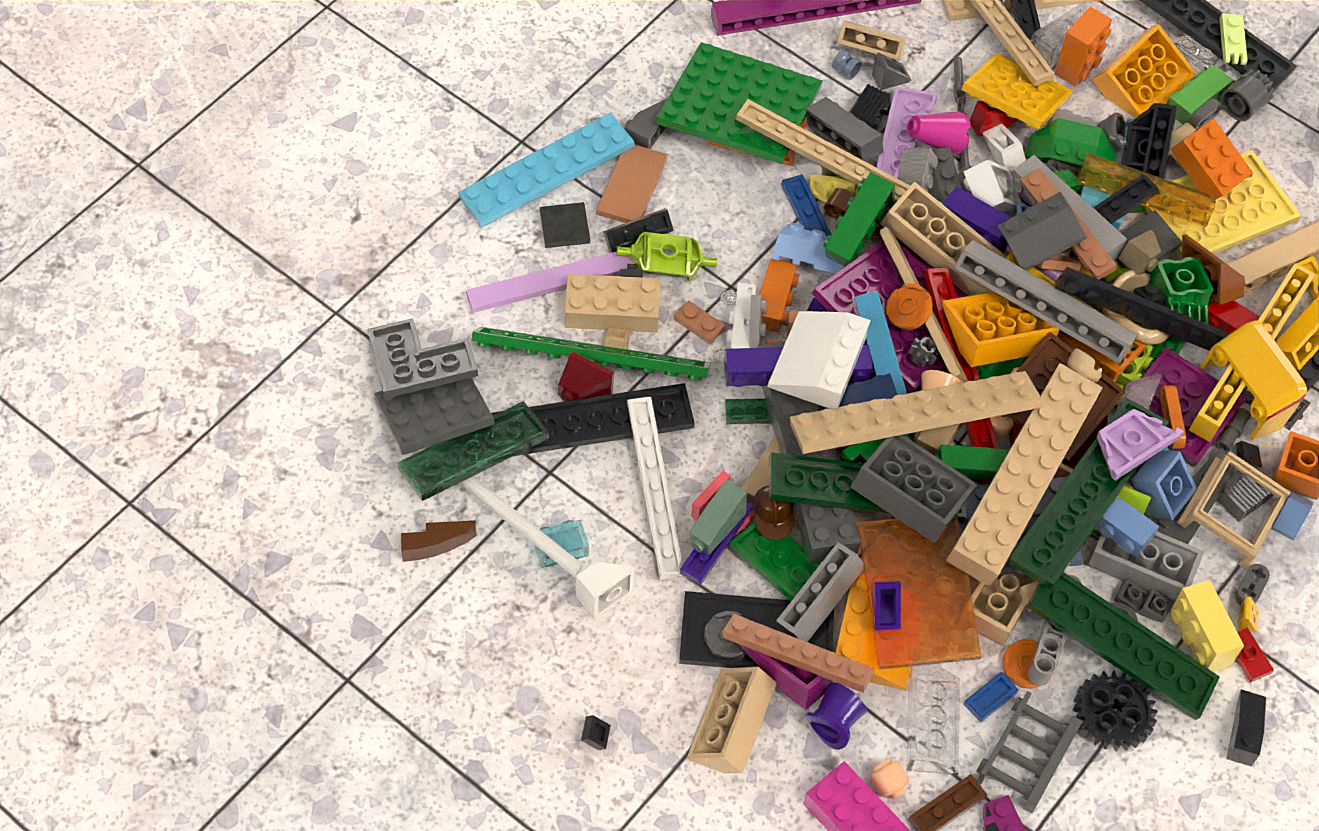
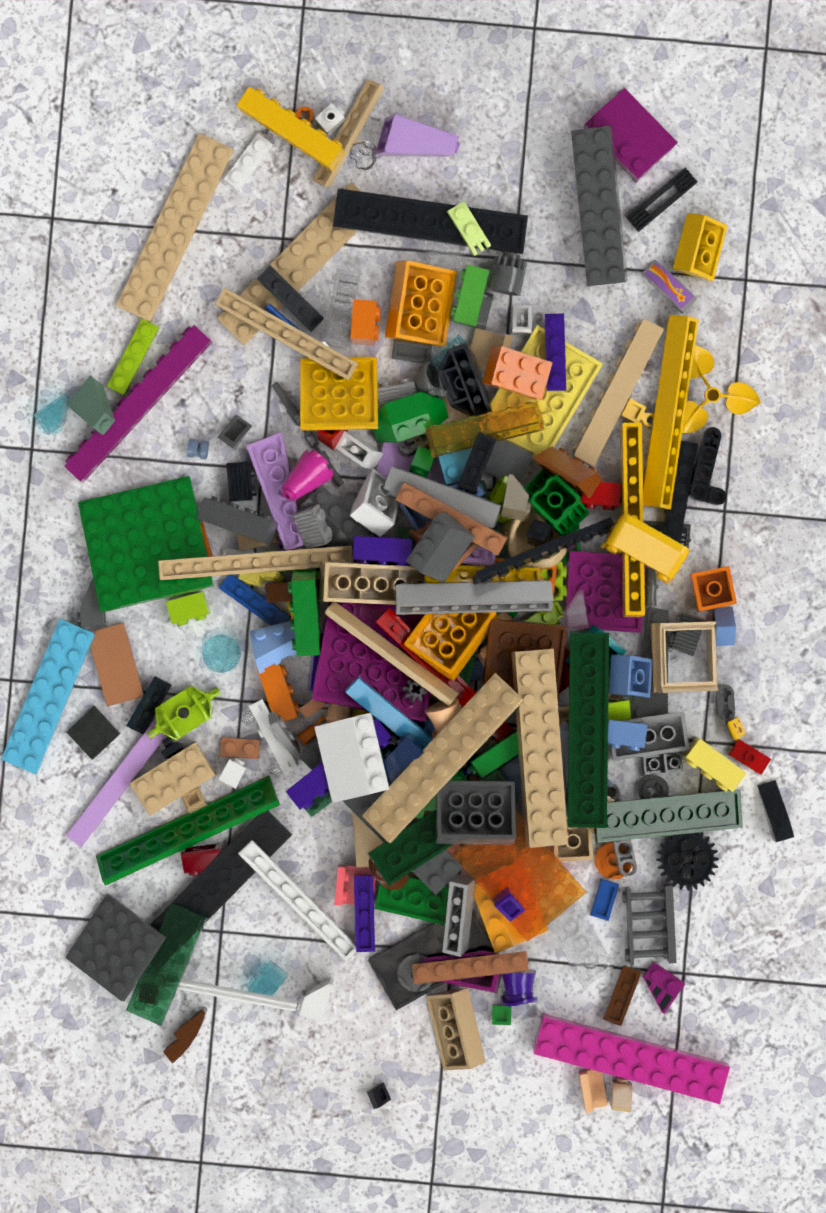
camera: 30 degrees left, 30 degrees up
(409, 368) = (79, 928): plate -> none
(677, 332) = (233, 772): none -> white brick
(718, 518) = (360, 910): sand green slope -> none
(740, 176) = (187, 608): none -> lime brick
(743, 234) = (221, 653): none -> clear light blue tile
(794, 738) = (501, 1015): none -> green plate
(872, 40) = (203, 416): tan brick -> none
(889, 779) = (576, 1002): light nougat head -> none
(909, 306) = (384, 666): orange tile -> none
(1084, 365) = (531, 638): tan hair -> none
(1105, 105) = (411, 351): none -> dark grey tile
(1133, 441) = (596, 673): lavender wing -> none
(1172, 413) = (606, 613): orange beam -> none
(1239, 139) = (522, 320): none -> white slope
(1249, 453) = (671, 601): black tile -> none
(1254, 185) = (555, 351): none -> dark purple plate

